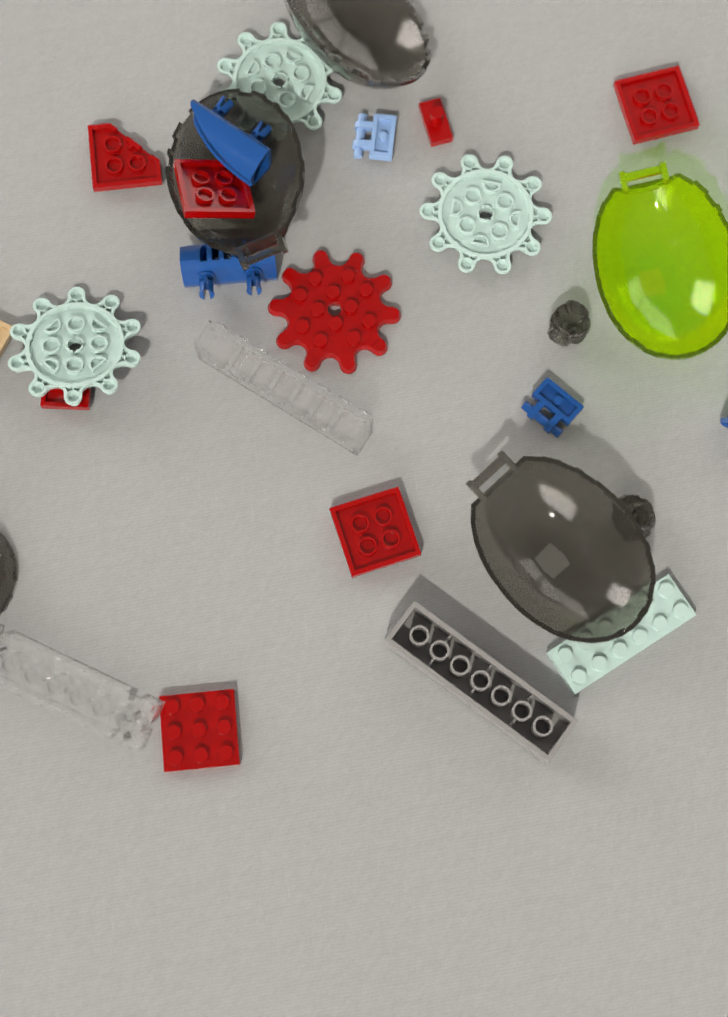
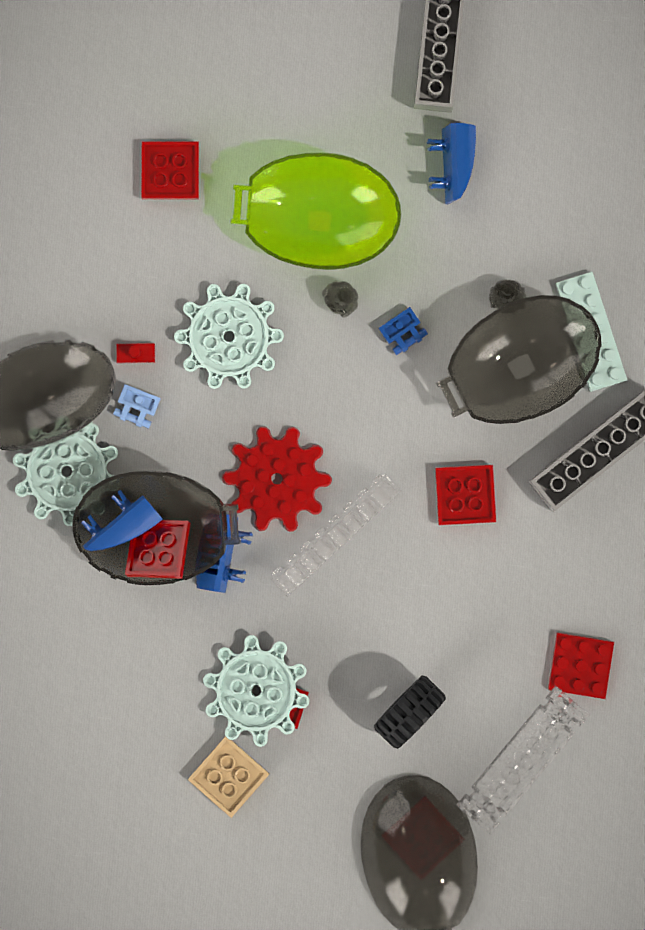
camera: 75 degrees left, 10 degrees up
(87, 523) = (410, 712): none -> black tyre
(120, 161) = (102, 619): red plate -> none

